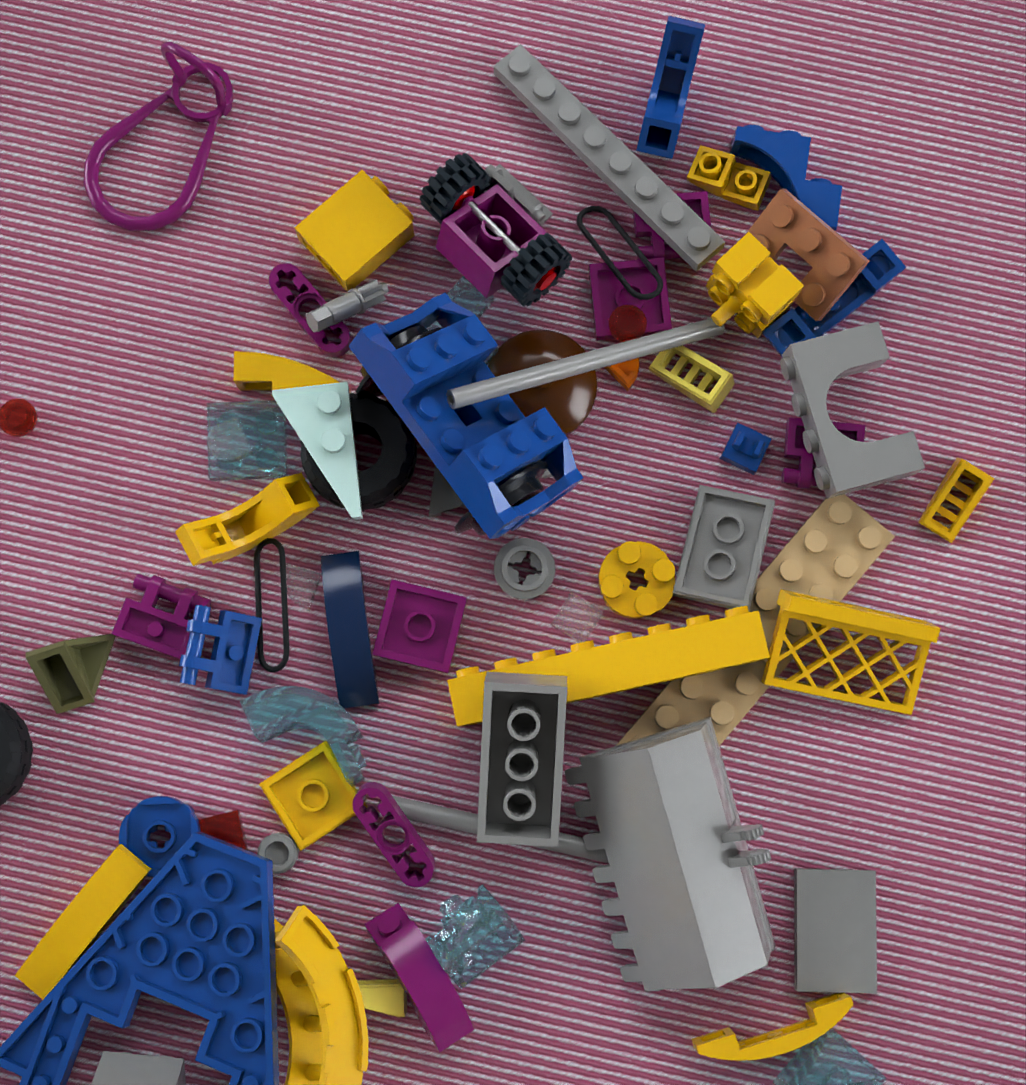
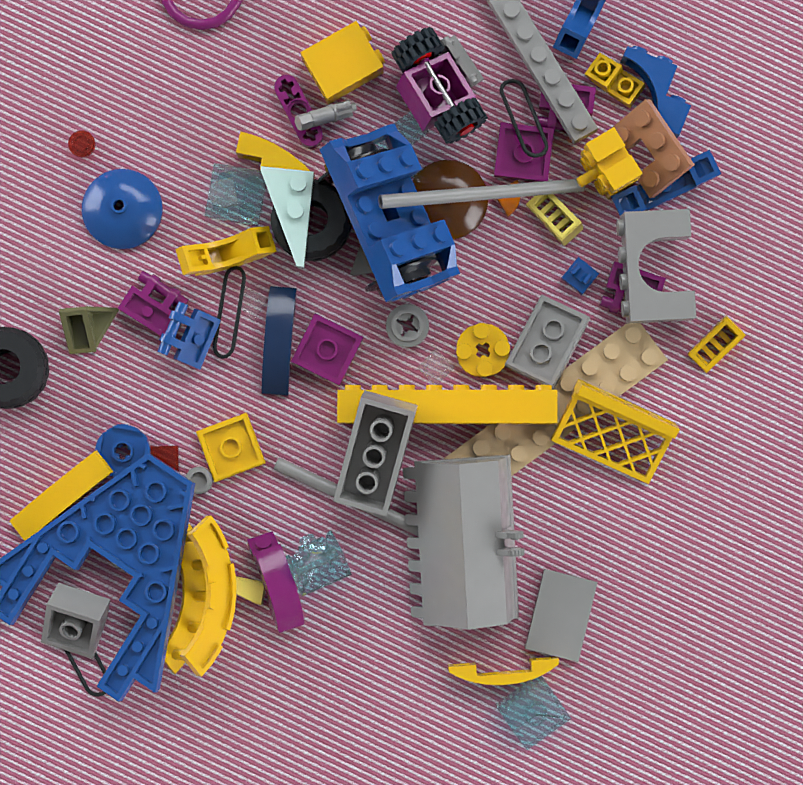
camera: 15 degrees right, 5 degrees up
(112, 508) = (136, 220): none -> blue dish
(293, 708) = (229, 385): clear light blue arch -> none
(369, 816) = (294, 499): magenta beam -> none
(627, 323) = (517, 170): clear red plate -> none

